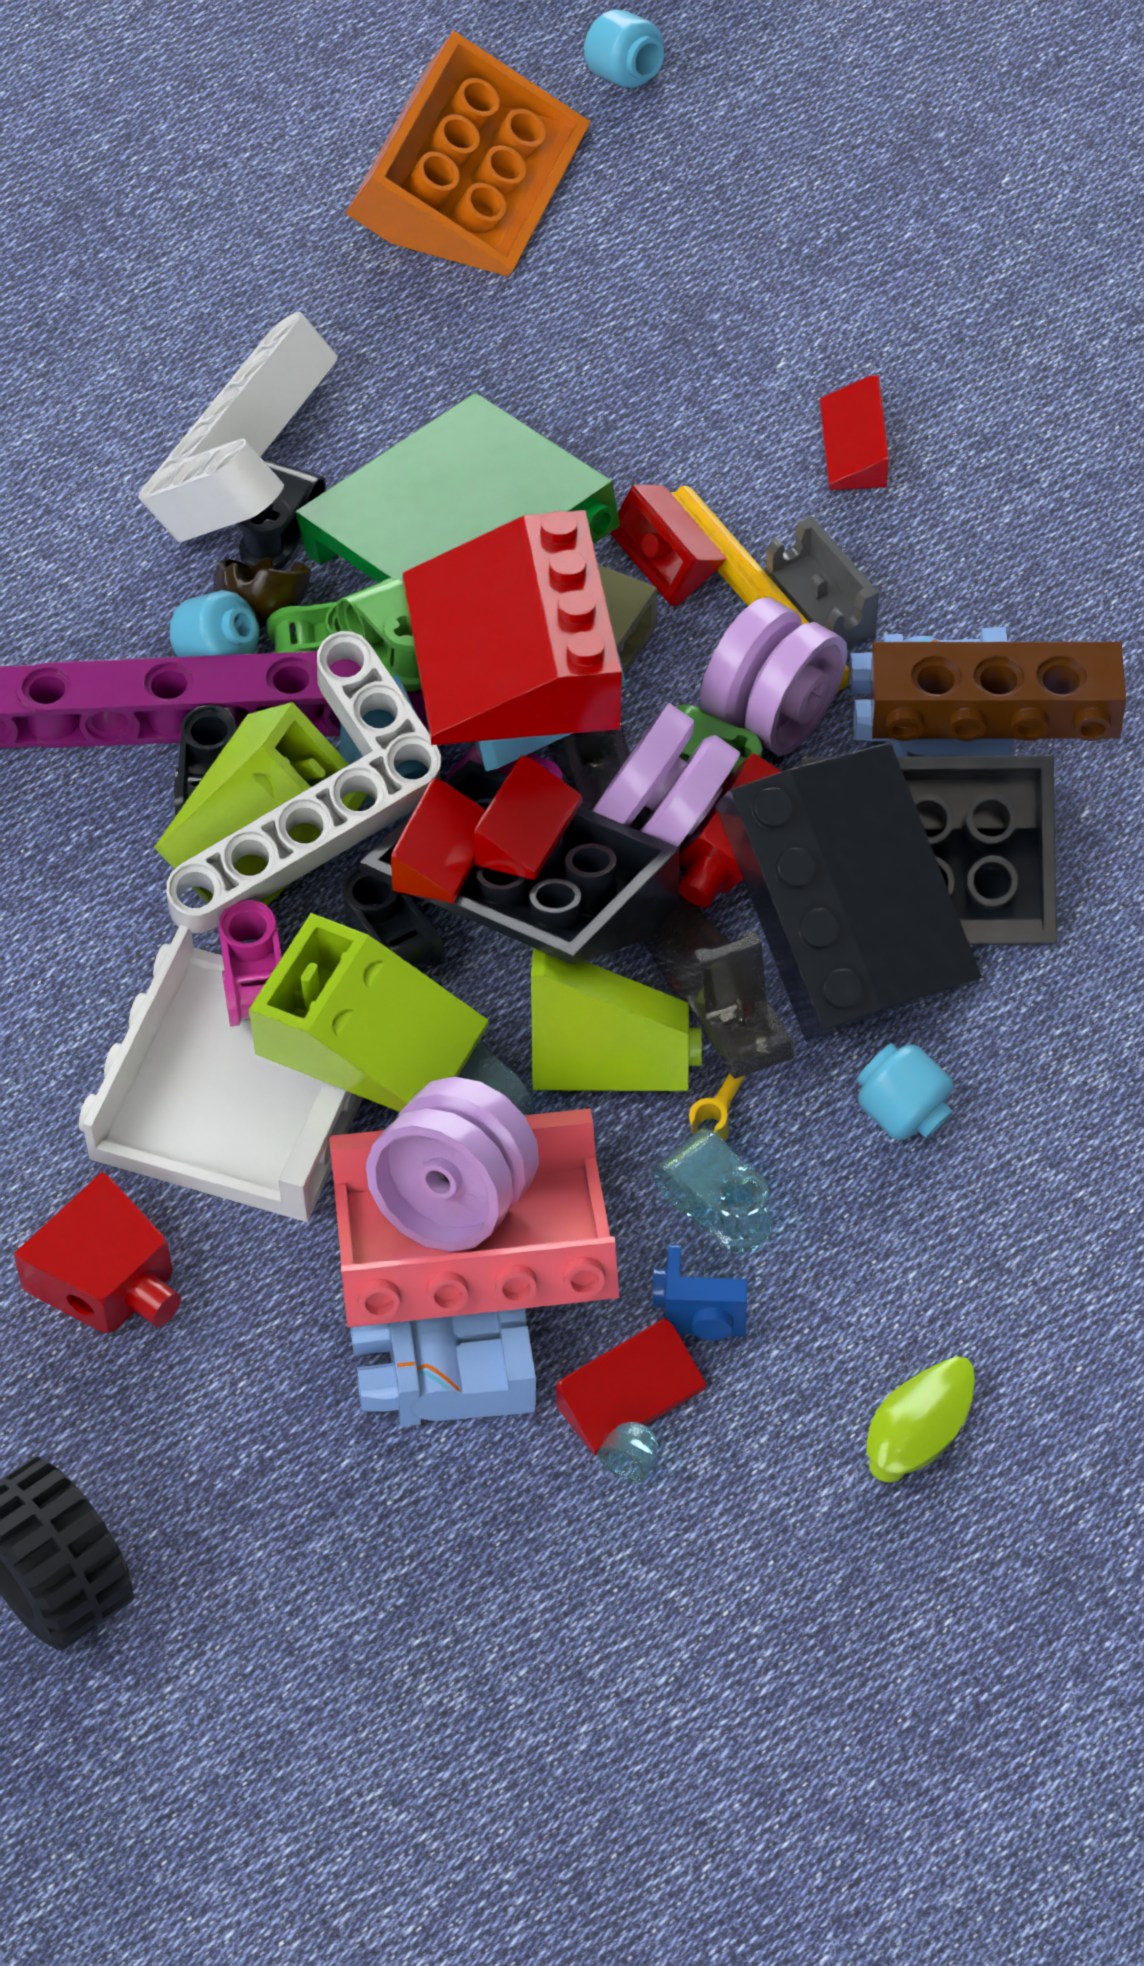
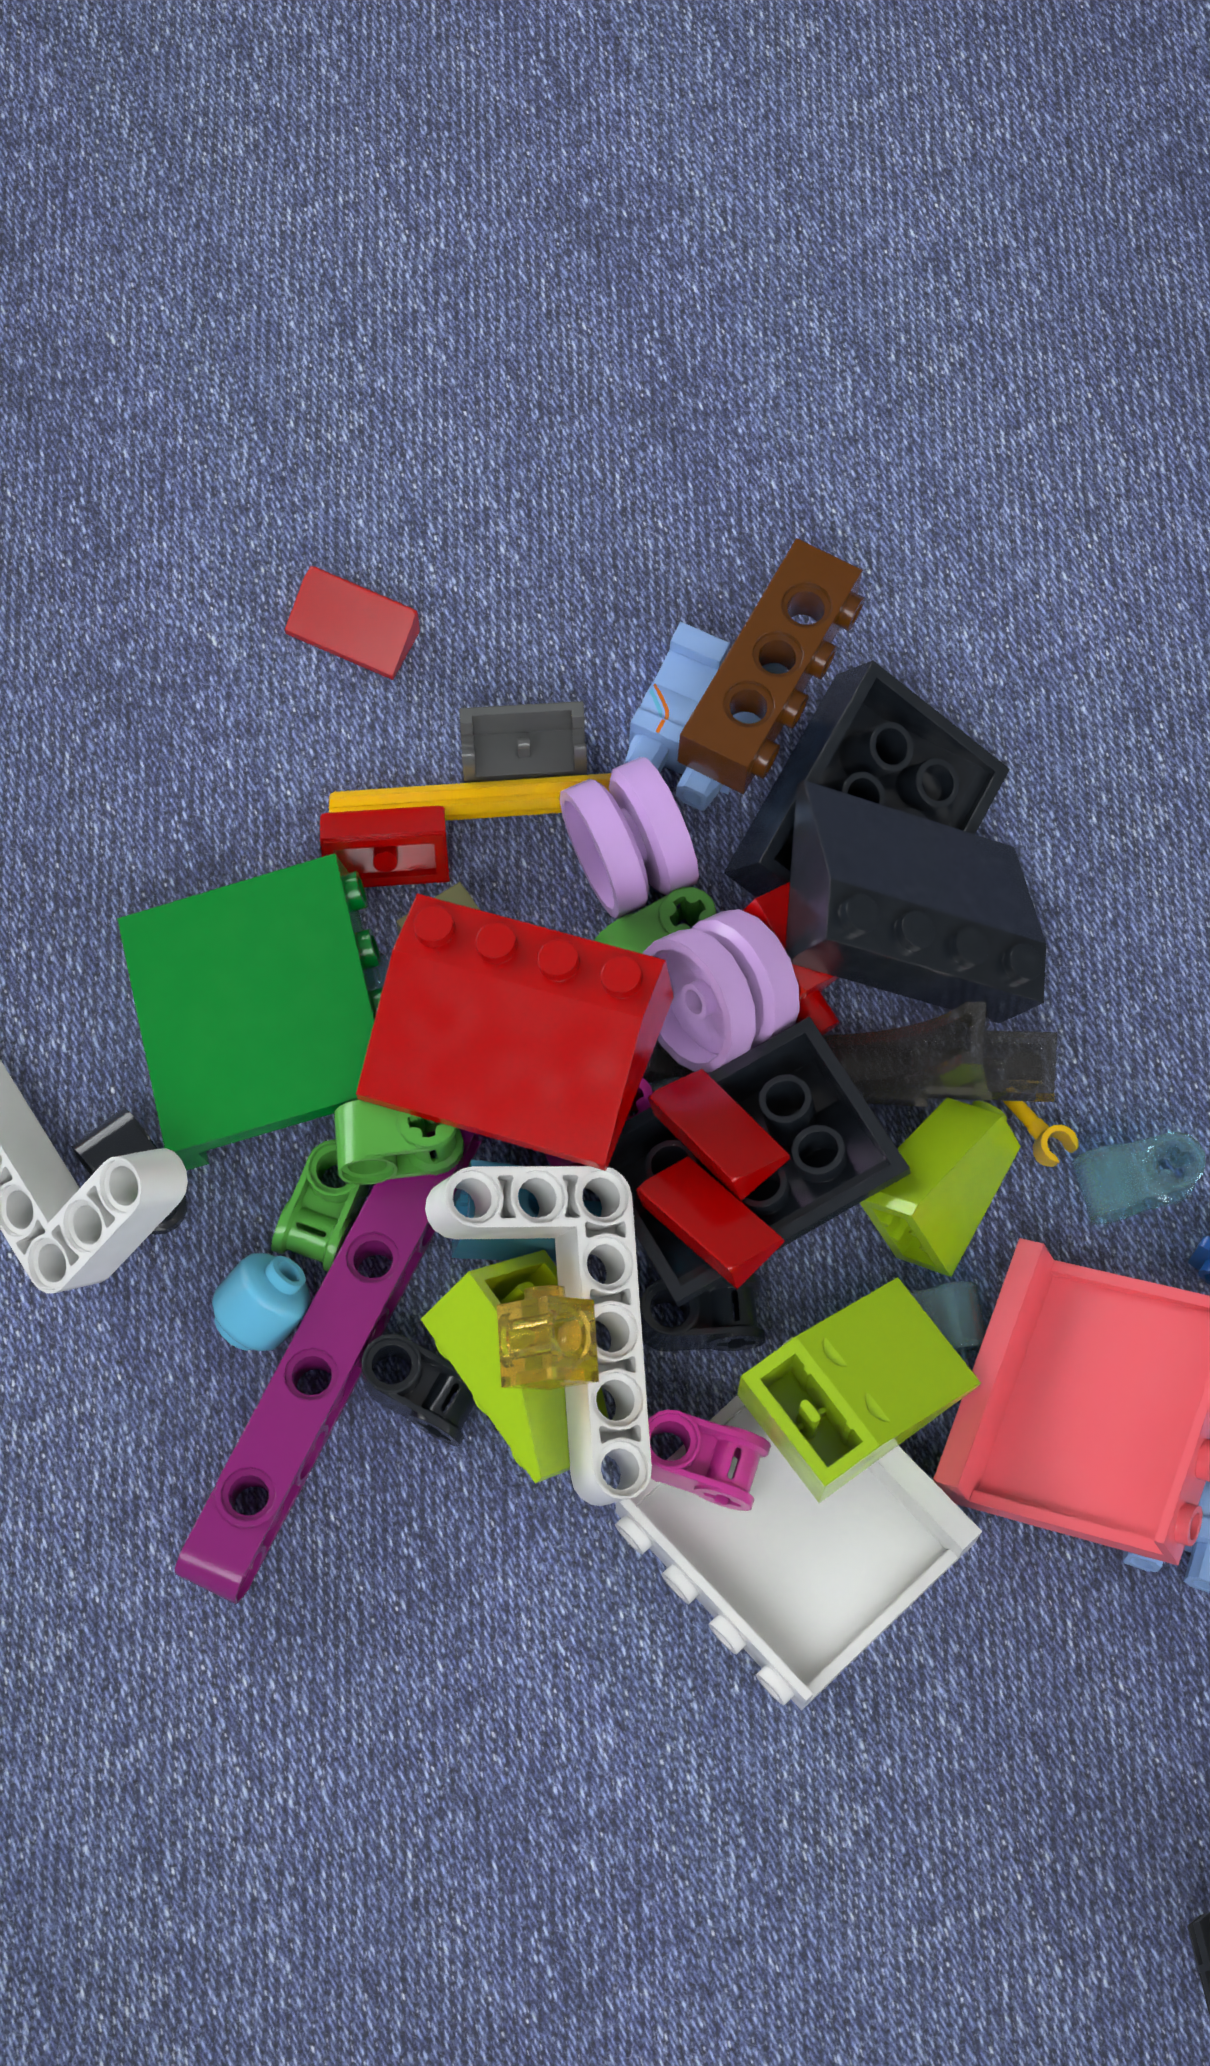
camera: 65 degrees left, 15 degrees up
(100, 1261) = (949, 1750): red torso -> none
(236, 771) = (547, 1340): none -> clear yellow brick
(263, 585) = (225, 1229): dark brown hair -> none
(452, 1164) = (1063, 1386): lavender wheel -> none
(905, 1092) = (1118, 971): medium azure head -> none

